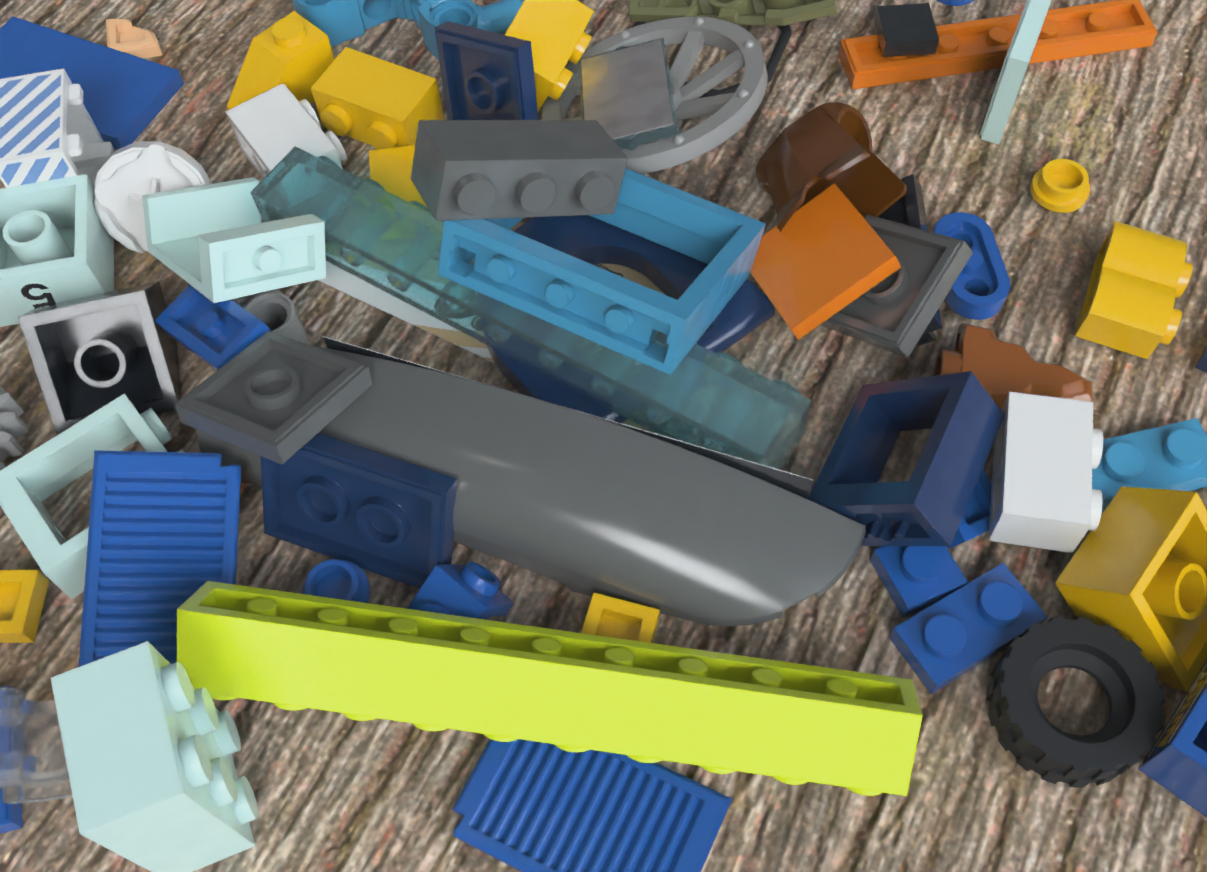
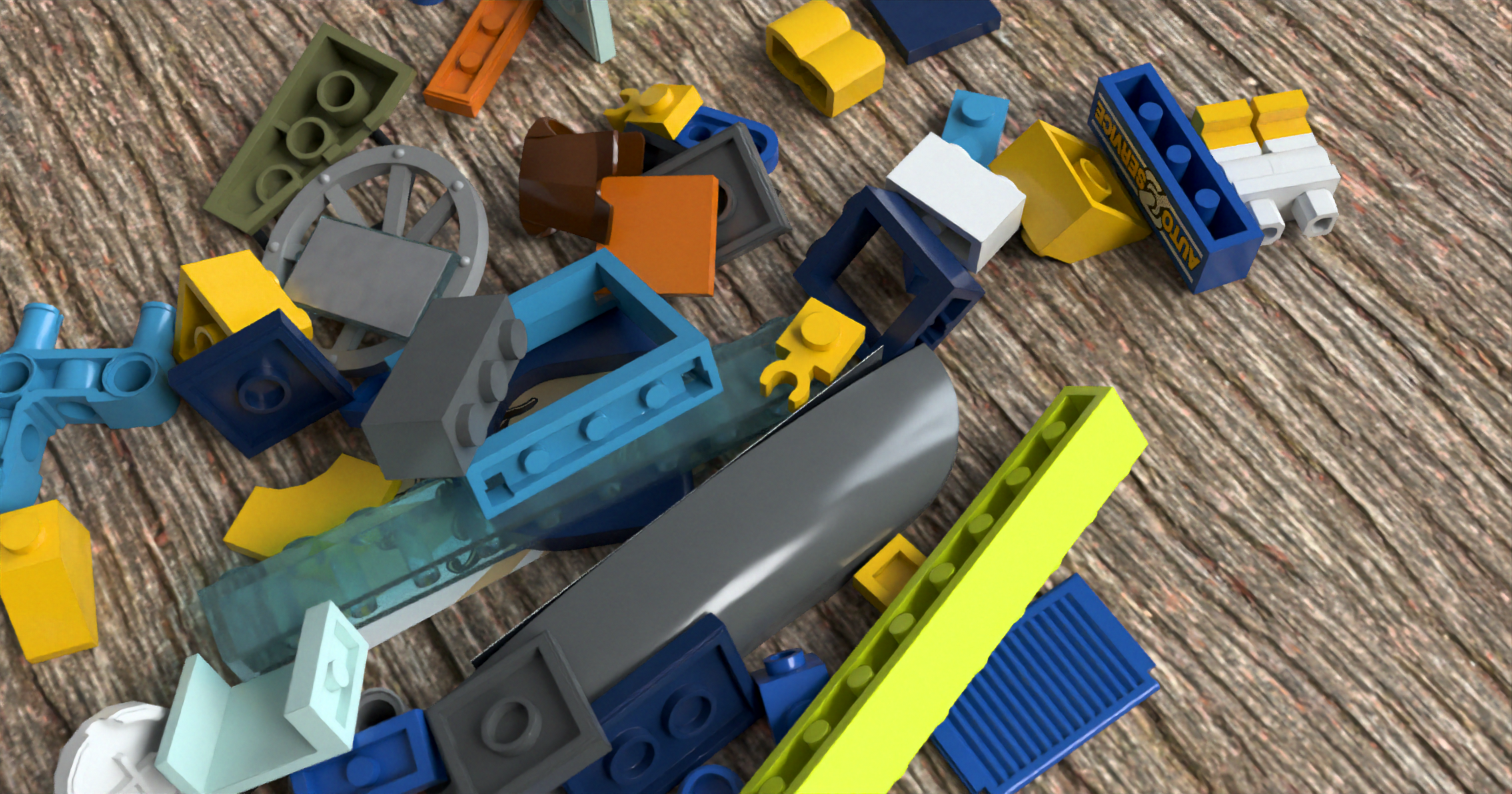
camera: 60 degrees left, 0 degrees up
(274, 124) = (142, 616): white brick -> none
(375, 100) = (165, 503): yellow brick -> none
(773, 426) = (811, 347): none -> yellow plate
(906, 30) = (460, 41): black tile -> none
(917, 575) = (971, 342): blue plate -> none
(954, 195) = (658, 109): none -> yellow plate
(966, 627) = (1030, 334): blue plate -> none
(1008, 368) = (824, 186): dark orange rock -> none
(1061, 186) = (695, 40): yellow plate -> none
(1119, 669) = (1137, 260): black tyre -> none

